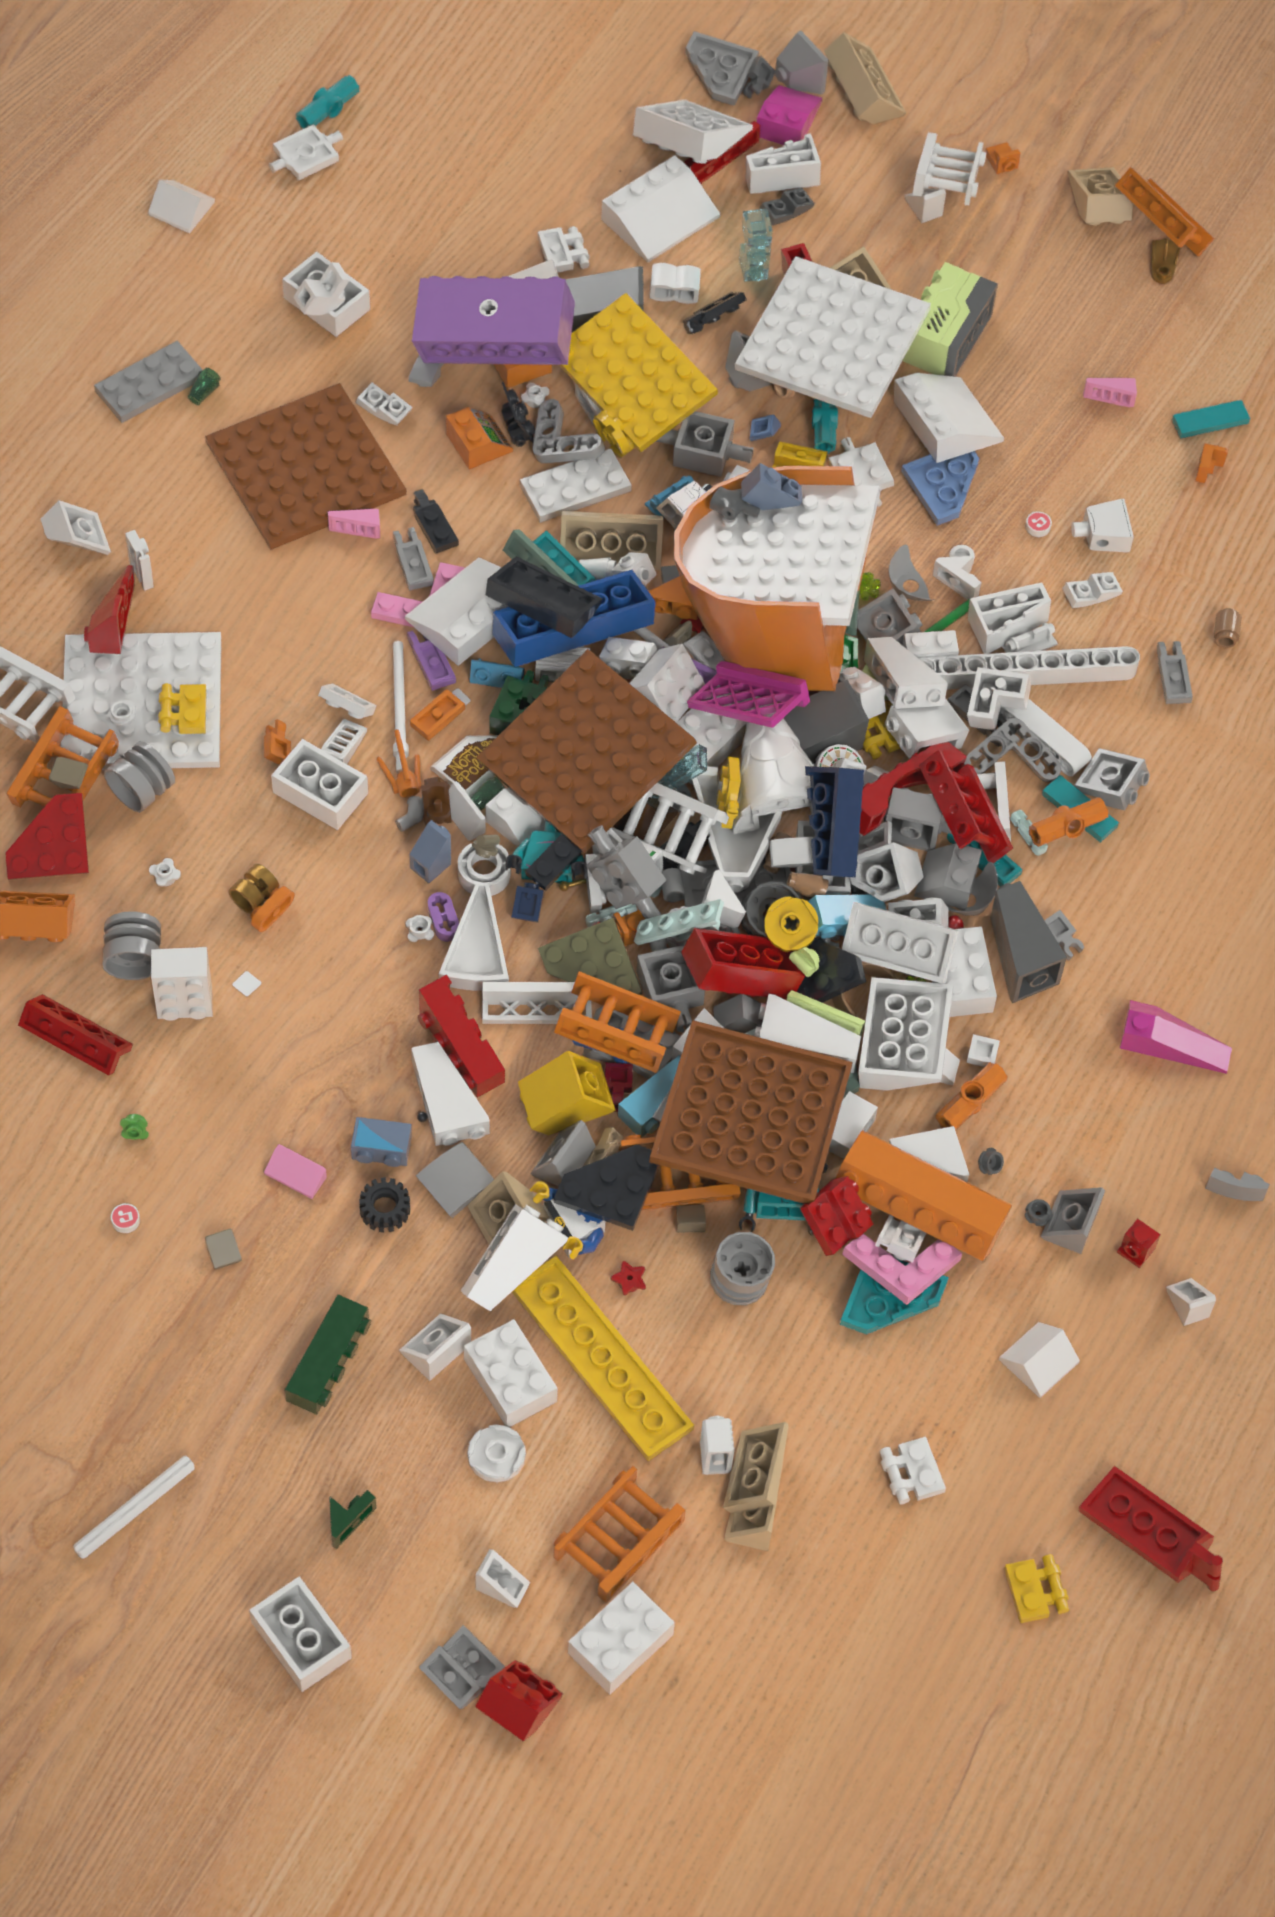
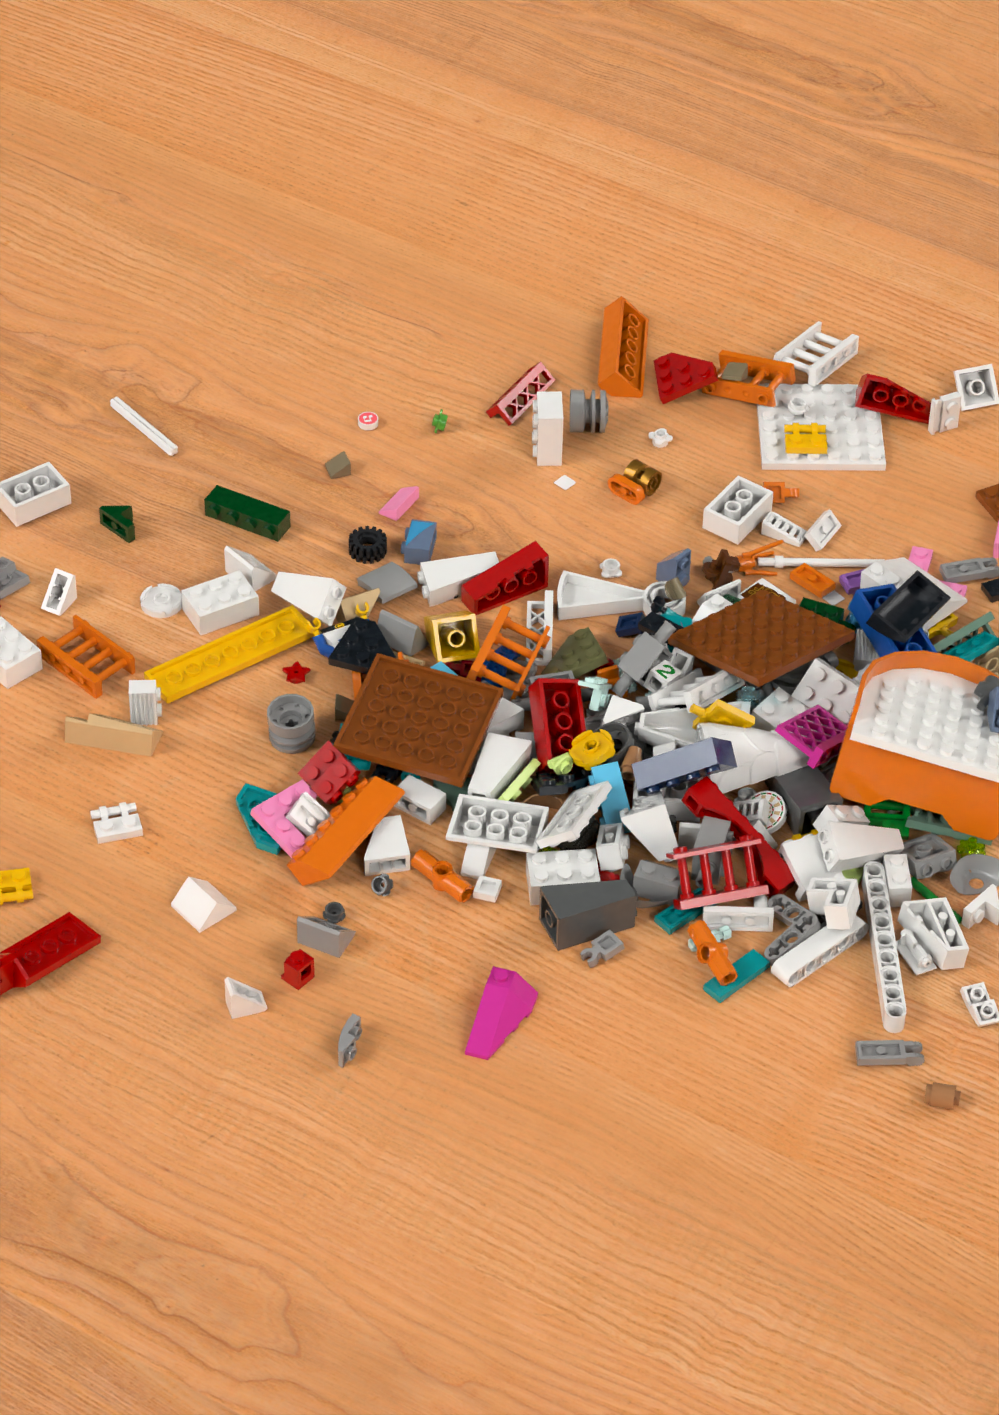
camera: 95 degrees right, 15 degrees down
(139, 776) = (738, 413): light grey wheel -> none
(448, 915) = (625, 578): medium lavender beam -> none
(1114, 778) = (764, 995): light grey plate -> none

